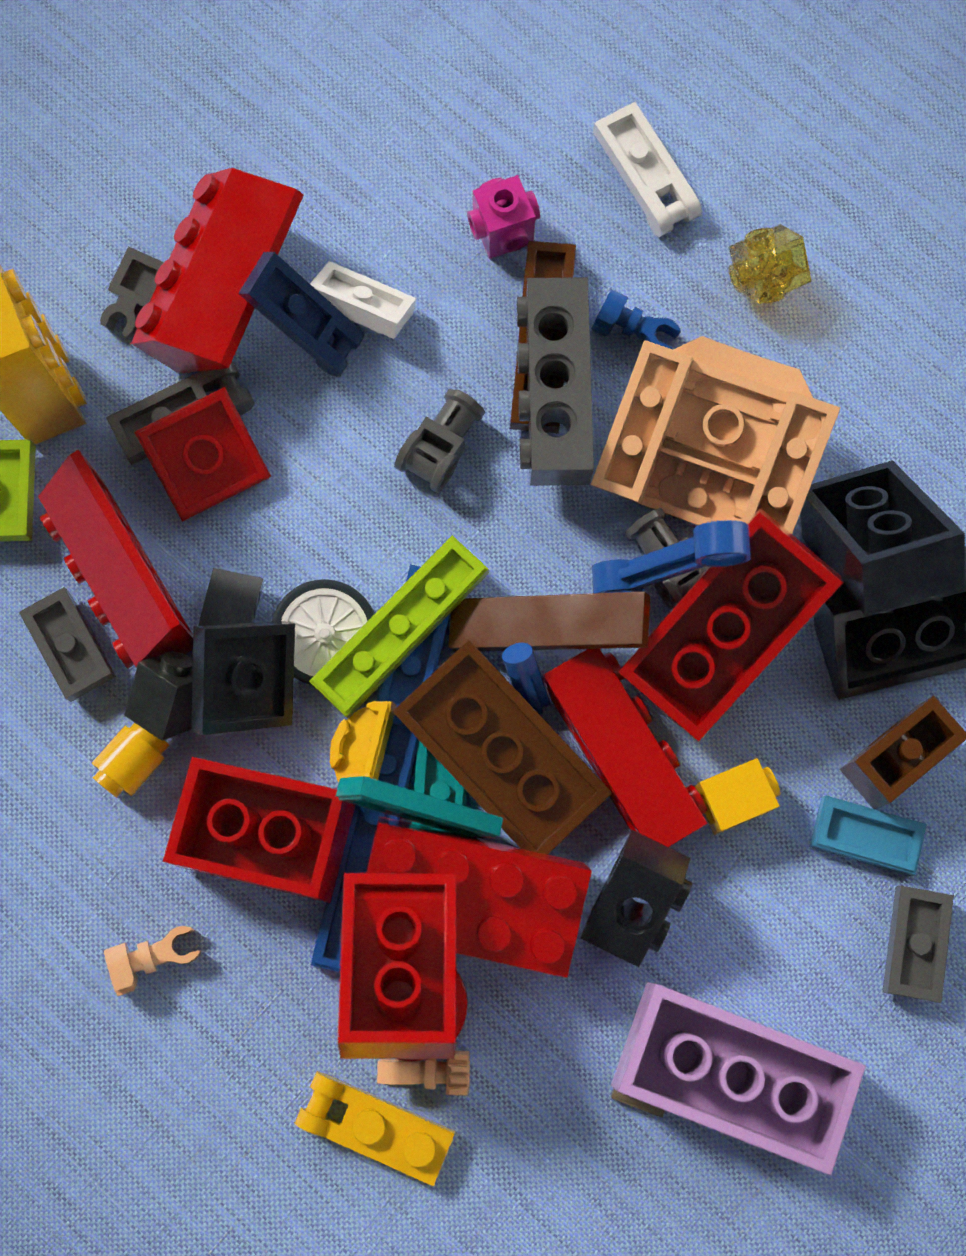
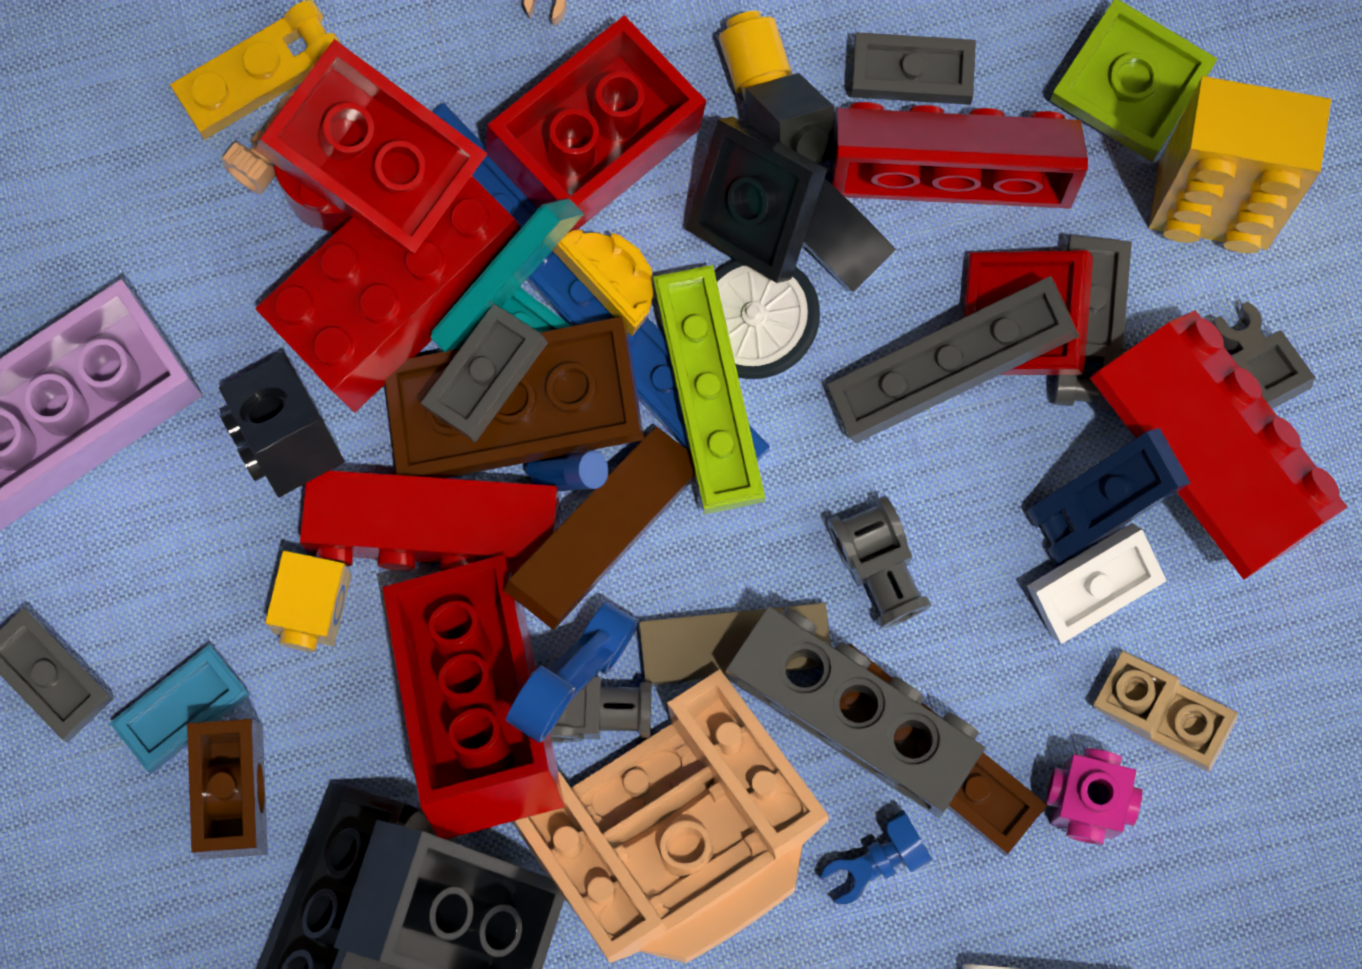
camera: 125 degrees right, 0 degrees up
(270, 473) = (953, 360): none -> dark grey plate
(414, 213) = (1165, 711): none -> tan slope
(500, 776) = (484, 373): none -> dark grey plate
(565, 509) = (701, 645): none -> dark tan tile

